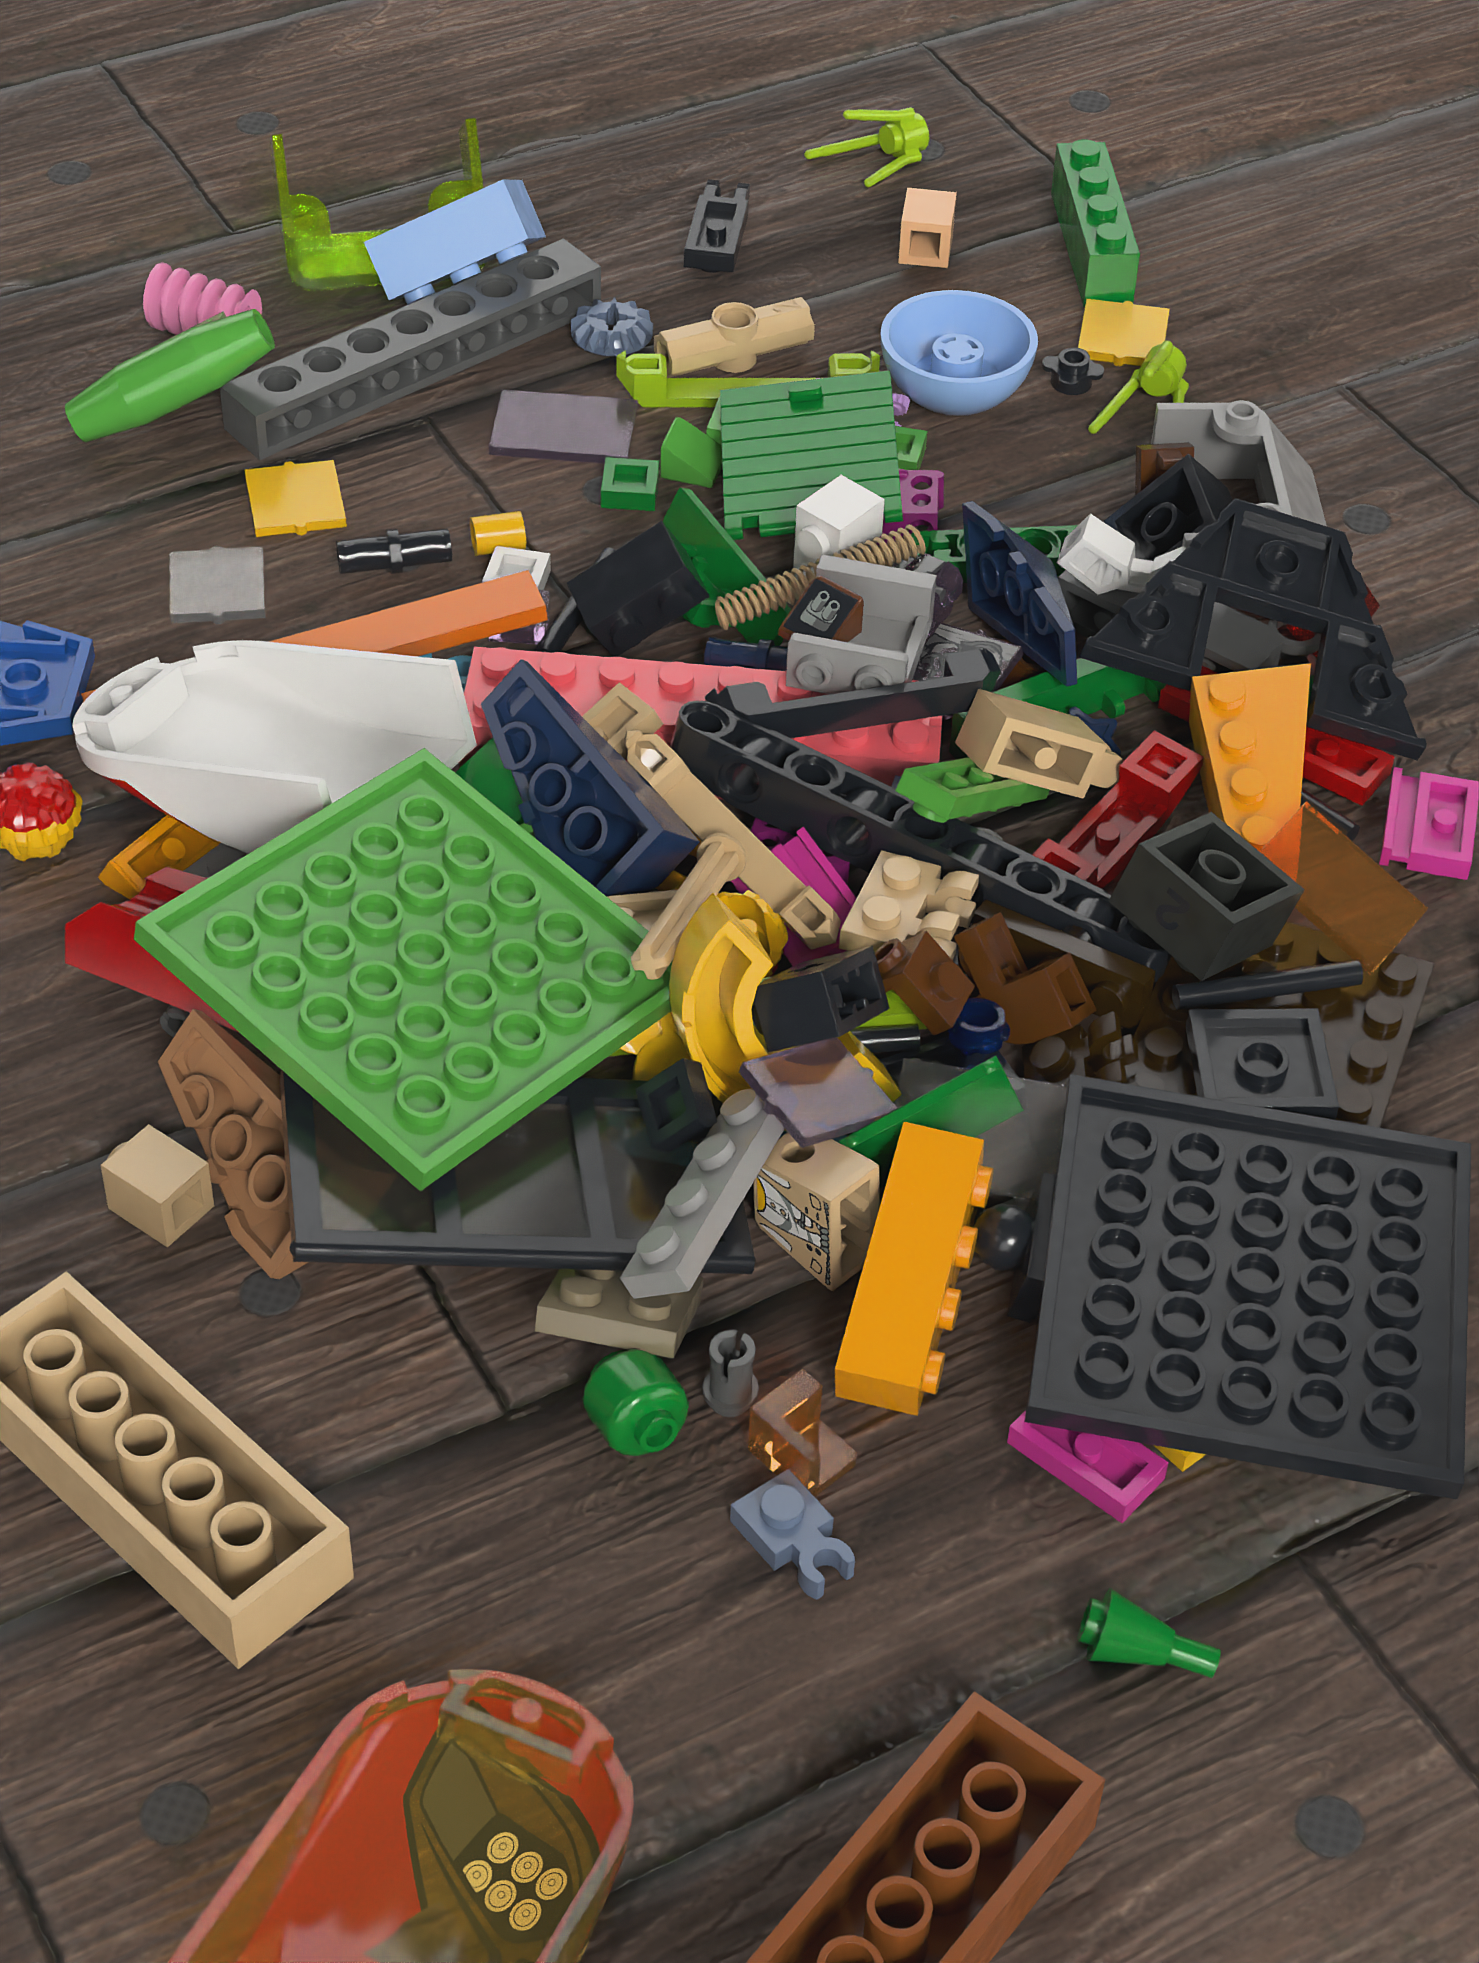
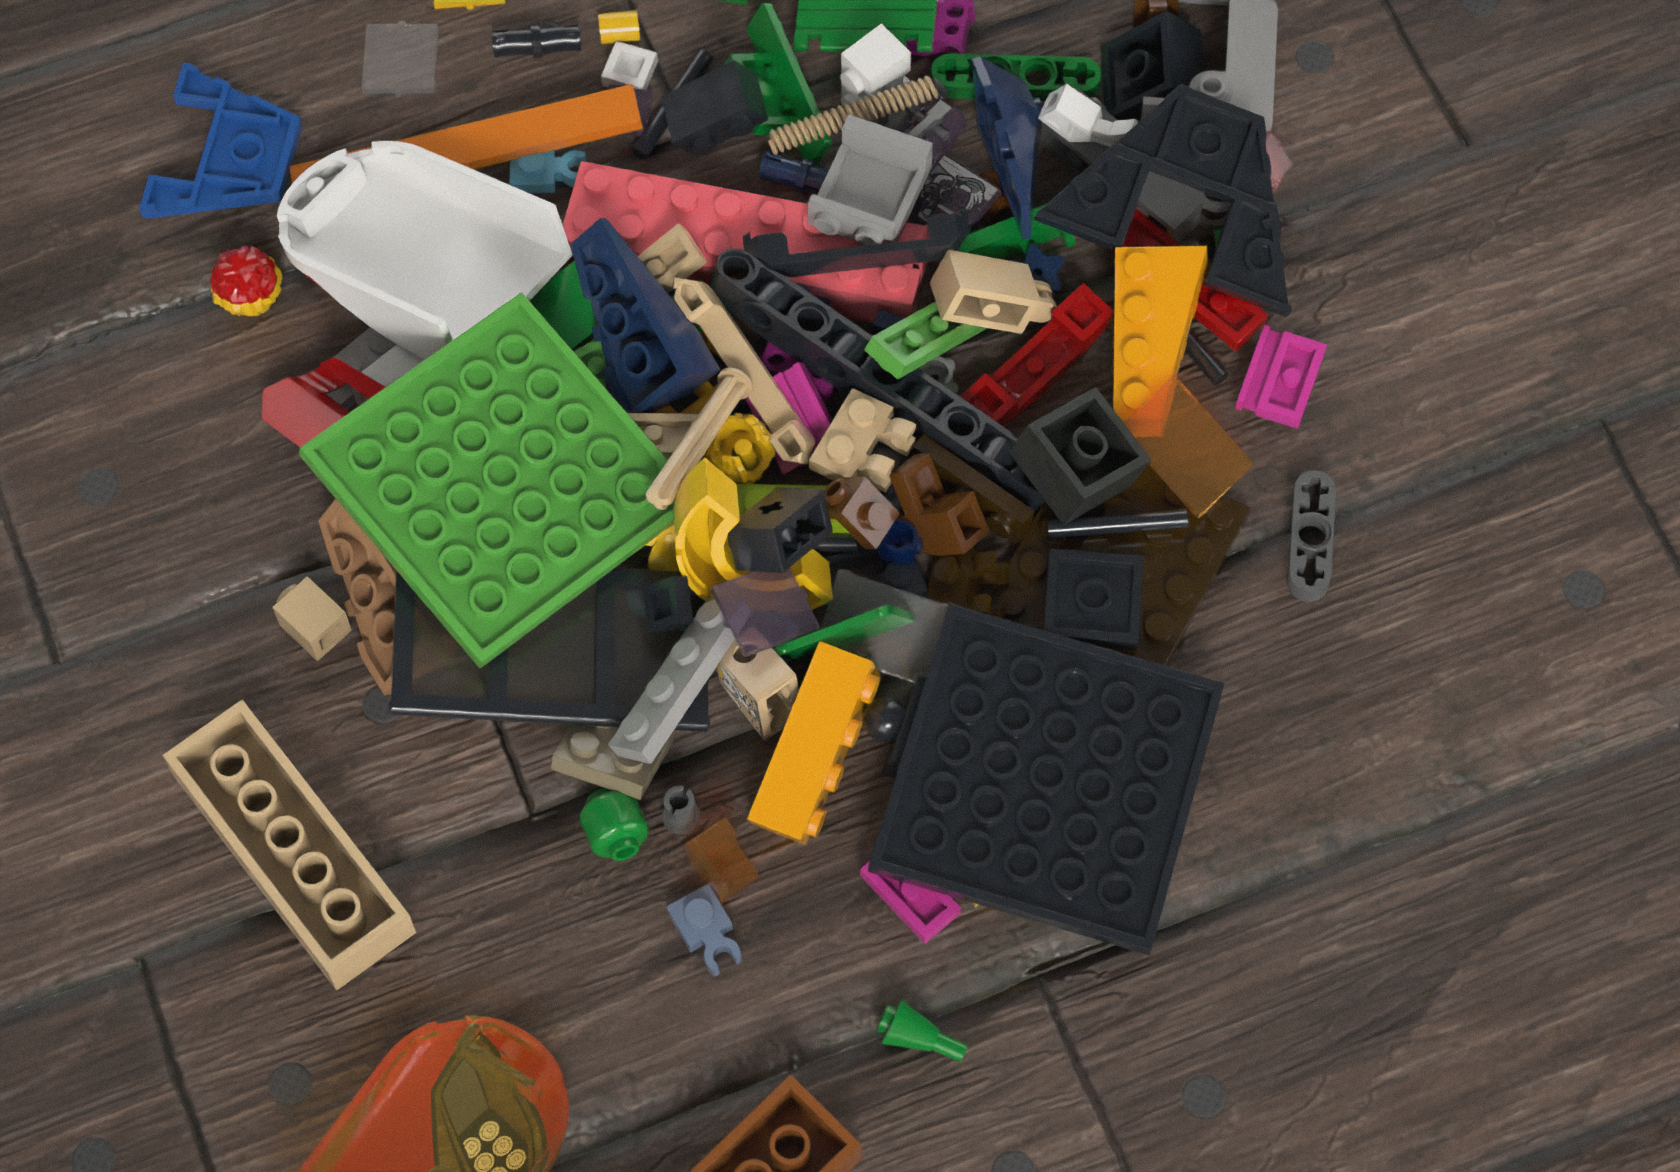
camera: 10 degrees right, 20 degrees up
(162, 846) = (329, 331): light orange slope -> none
(825, 612) = (840, 174): slope -> none

